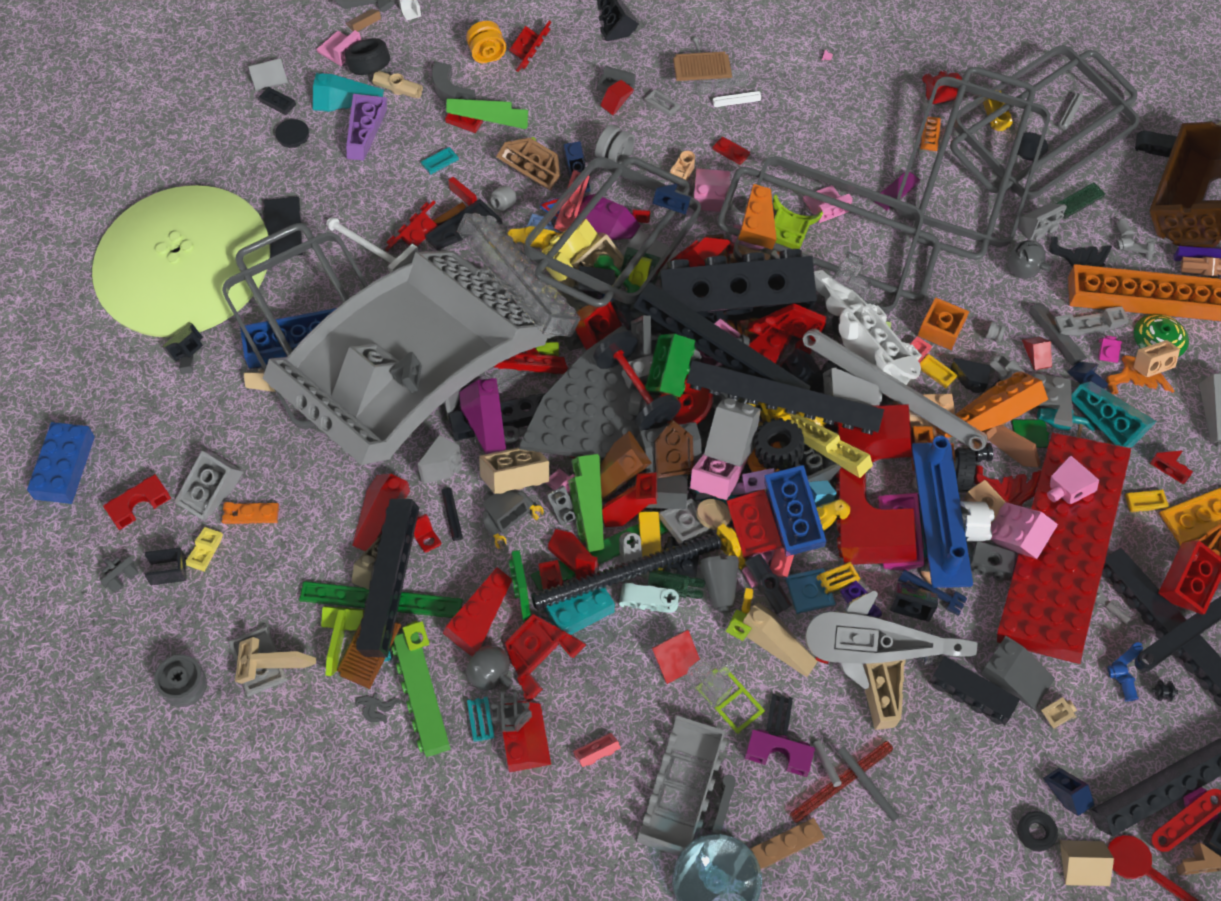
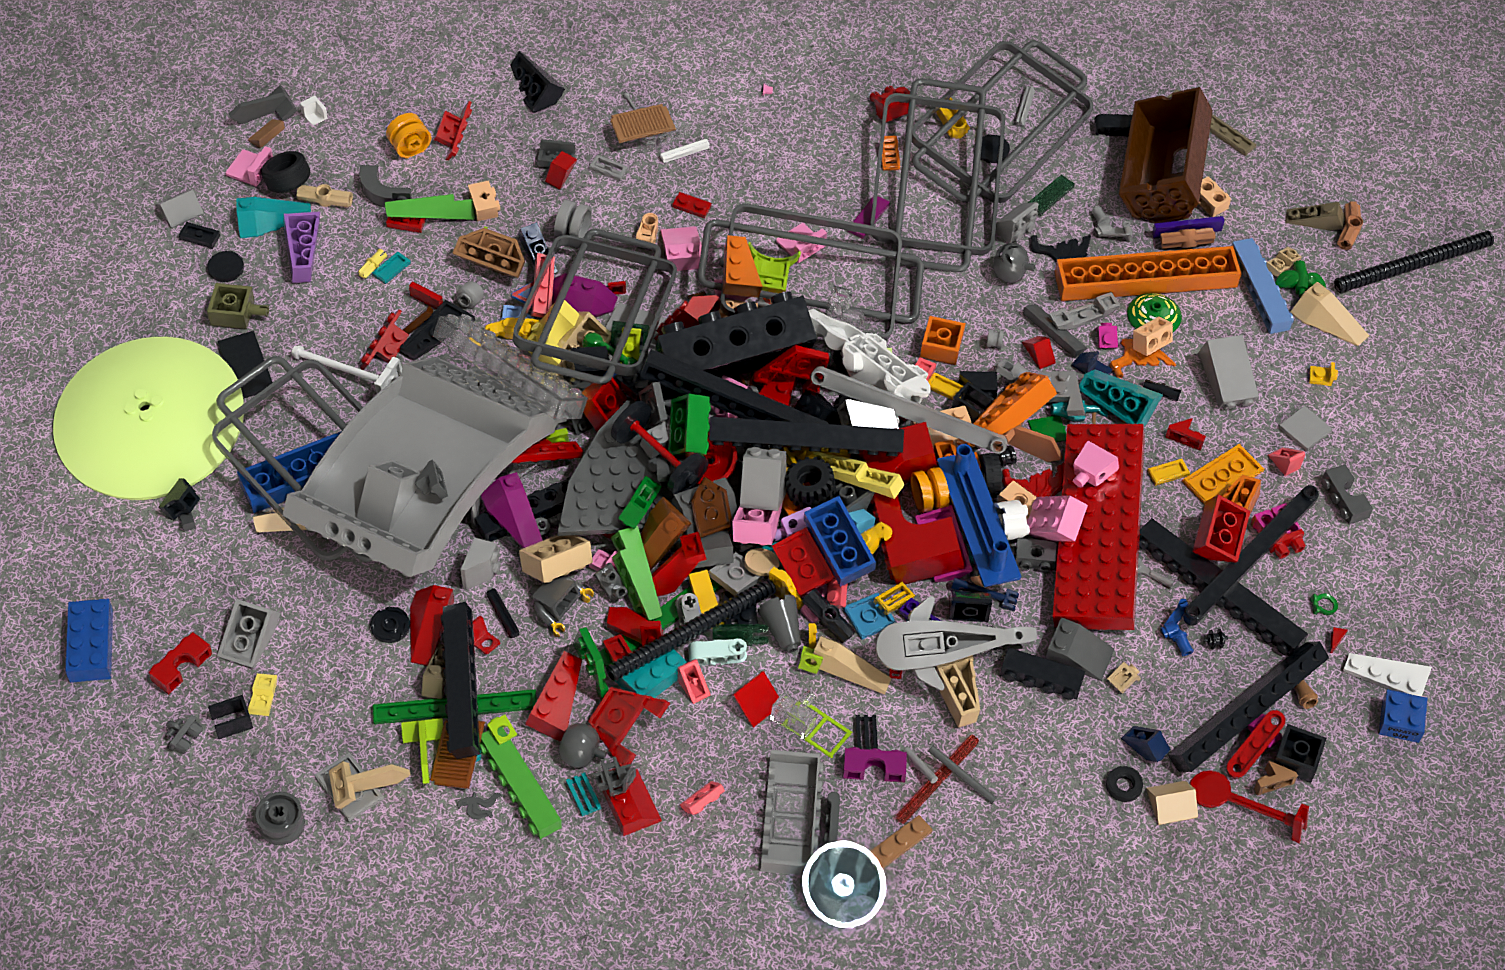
camera: 15 degrees left, 5 degrees down
(250, 513) = (298, 651): orange plate -> none
(286, 170) = (233, 306): none -> olive brick
(342, 503) = (396, 625): none -> black tile
(422, 154) = (372, 263): none -> light yellow axle
(539, 113) = (484, 200): none -> light nougat brick
(606, 431) = (639, 502): none -> green slope
(617, 624) = (692, 681): none -> coral slope
(670, 199) = (647, 266): dark blue slope -> none
(898, 473) = (929, 489): none -> light orange wheel
(966, 386) = (976, 396): none -> black piece
(1156, 414) = (1166, 391): none -> black pin

